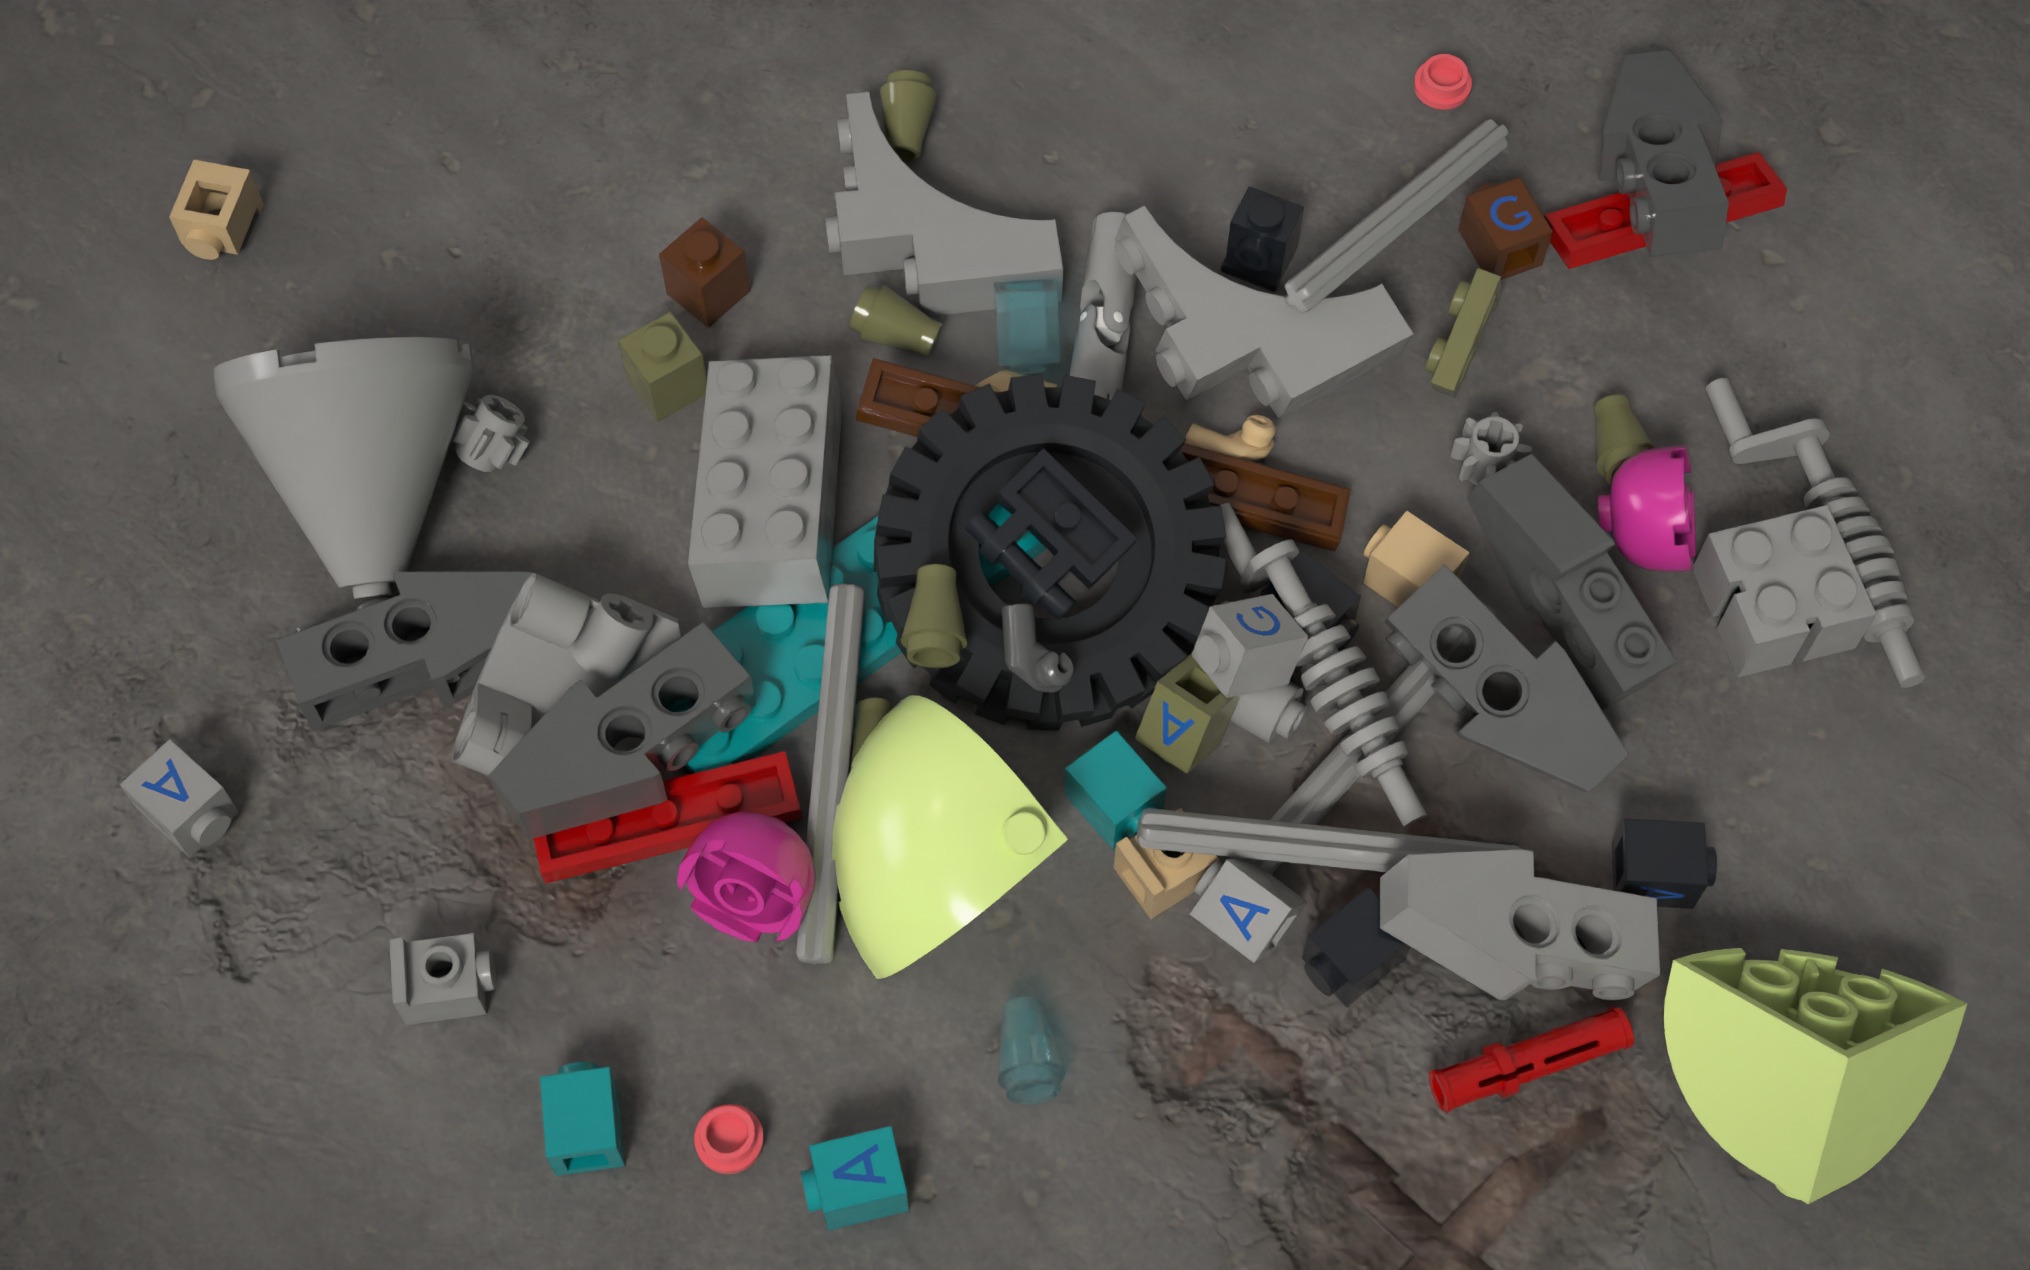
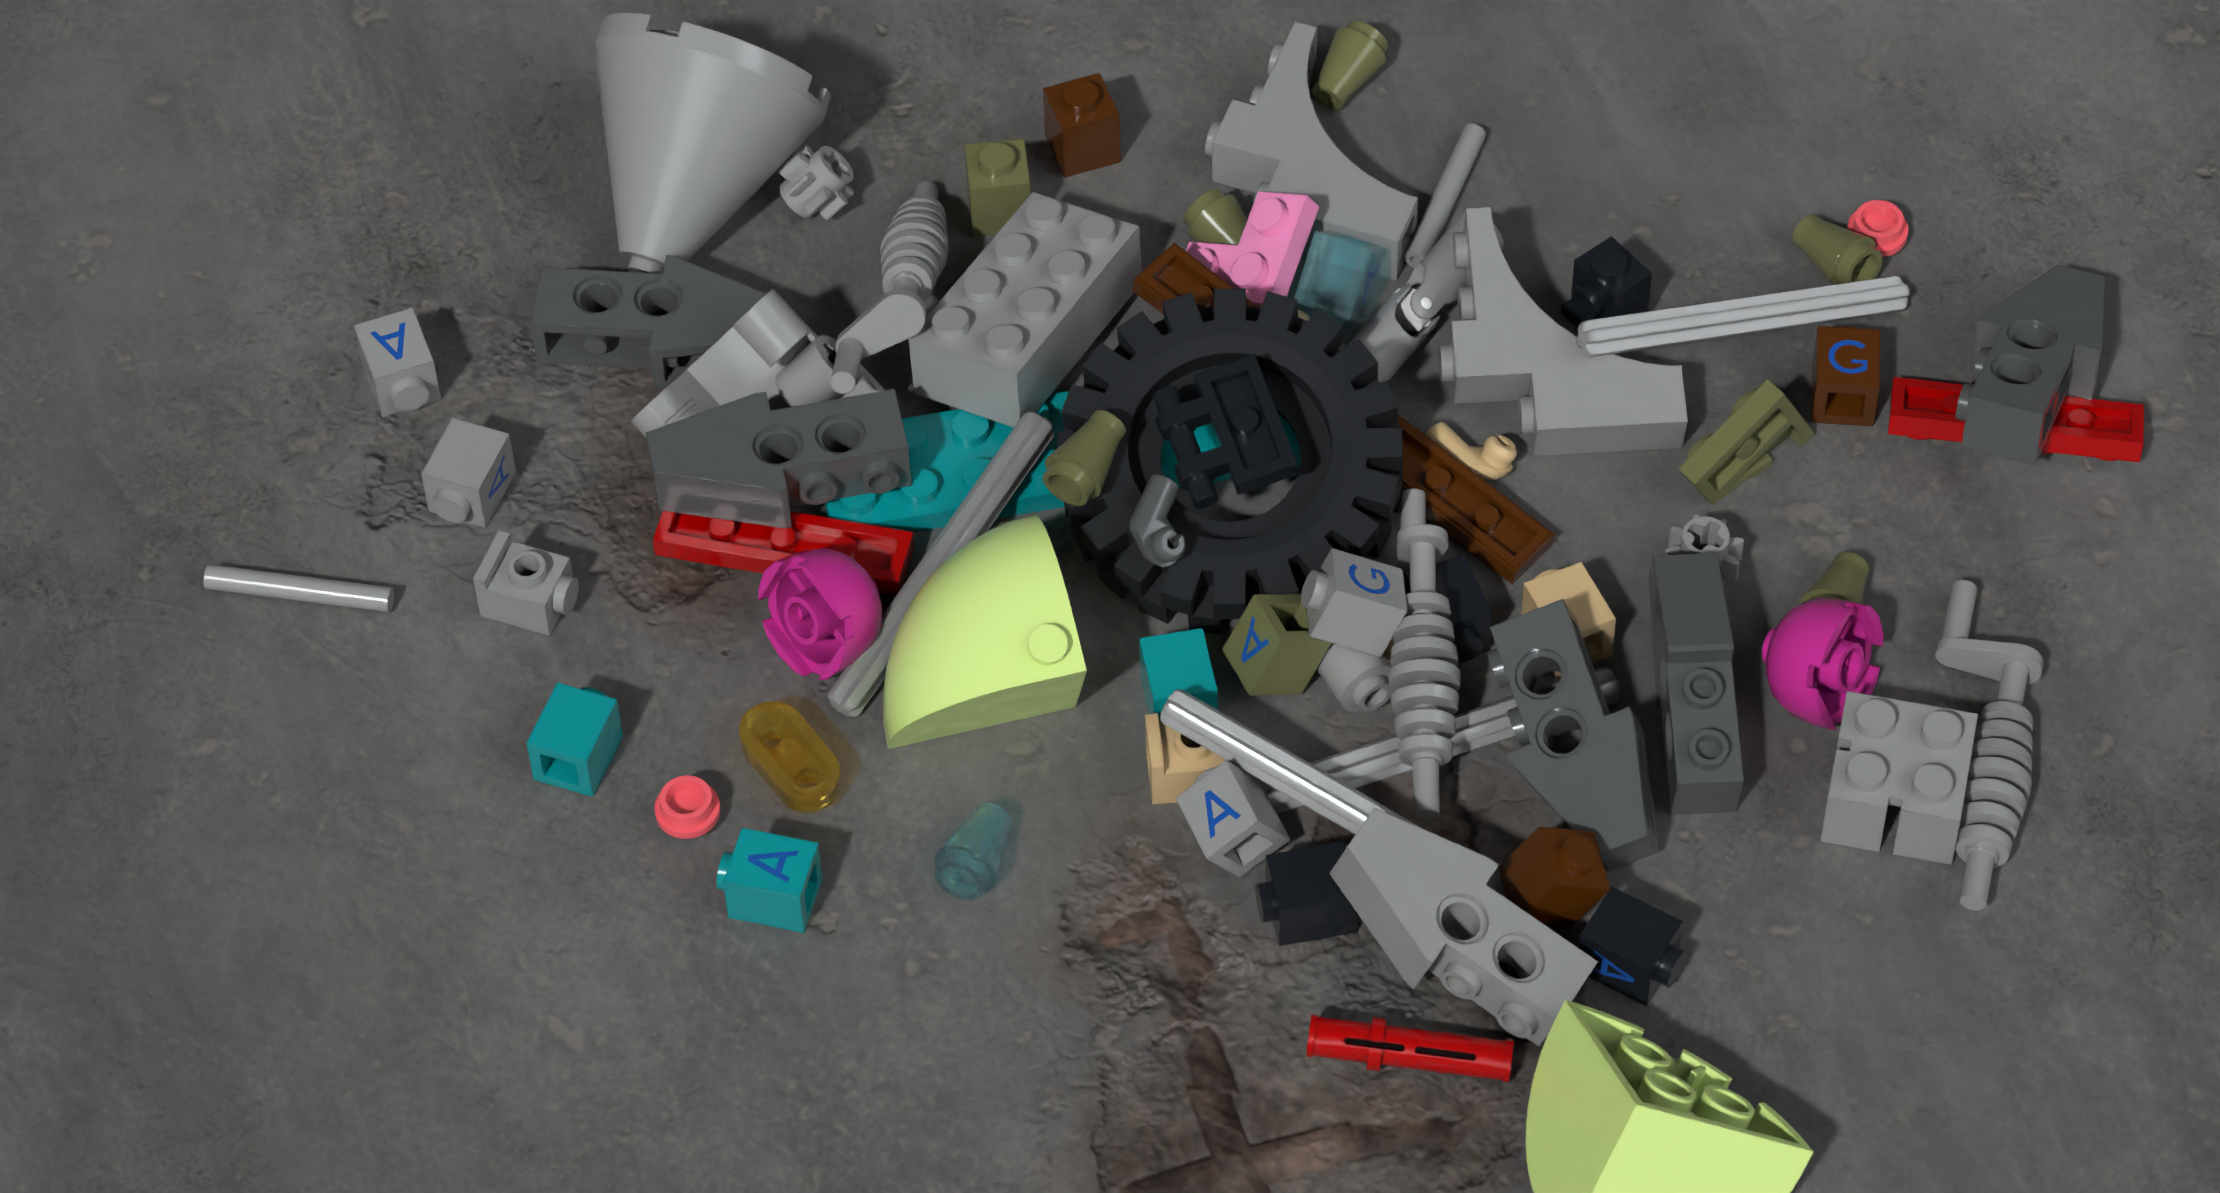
camera: 30 degrees right, 10 degrees down
(207, 1084) = (299, 588): none -> light grey bar
(317, 885) = (468, 473): none -> light grey brick
(640, 484) = (911, 263): none -> light grey piece
(802, 1037) = (794, 761): none -> clear yellow plate
(955, 327) = (1267, 248): none -> bright pink plate
(1060, 200) = (1445, 193): none -> light grey piece
(1428, 118) = (1836, 251): none -> olive cone
(1568, 829) = (1555, 875): none -> reddish brown brick

